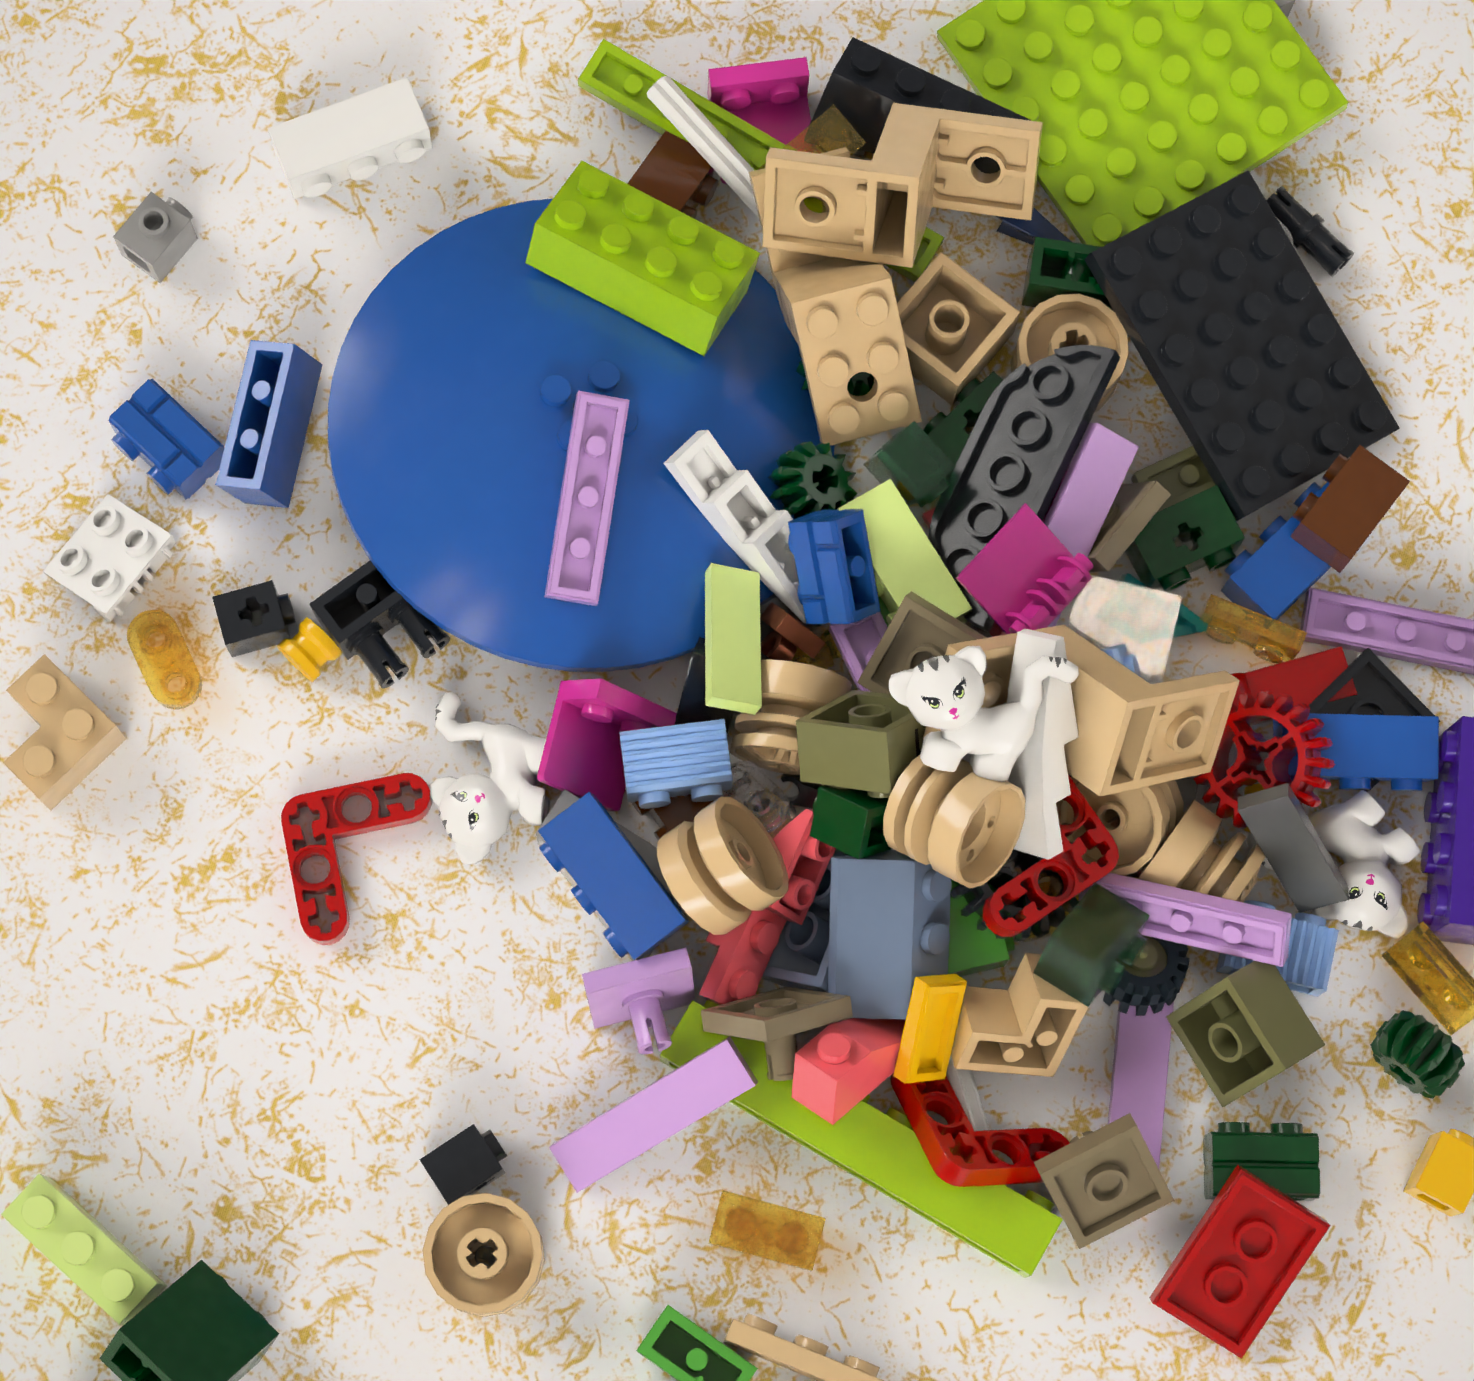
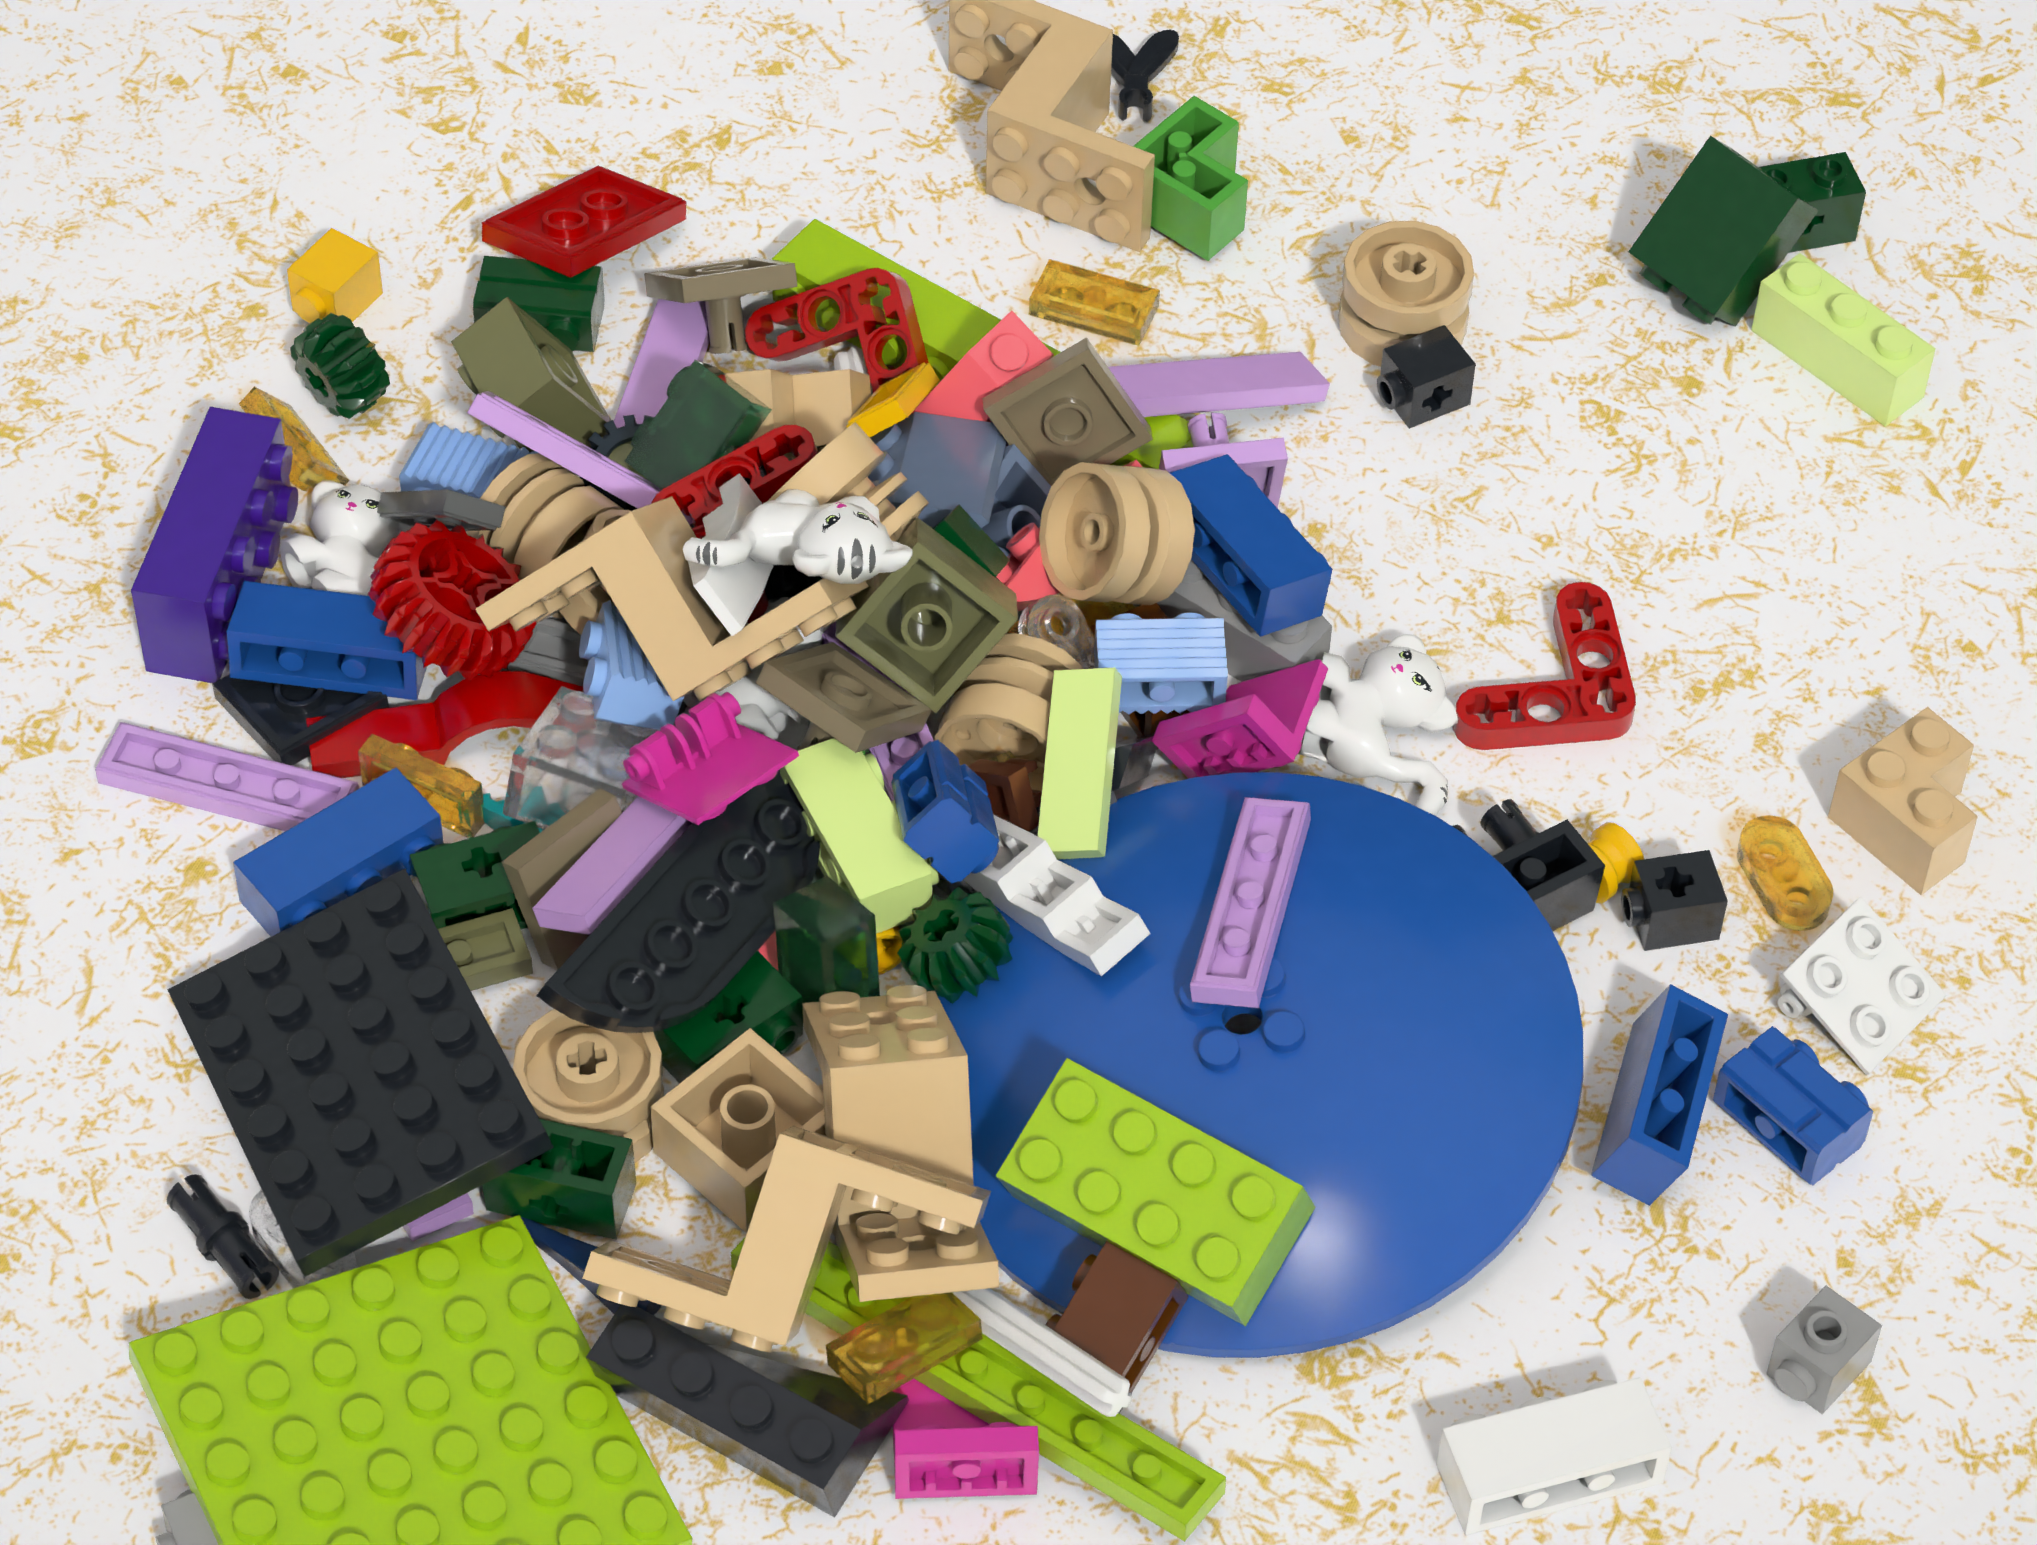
camera: 170 degrees left, 25 degrees down
(1349, 508) = (273, 846): reddish brown brick -> none

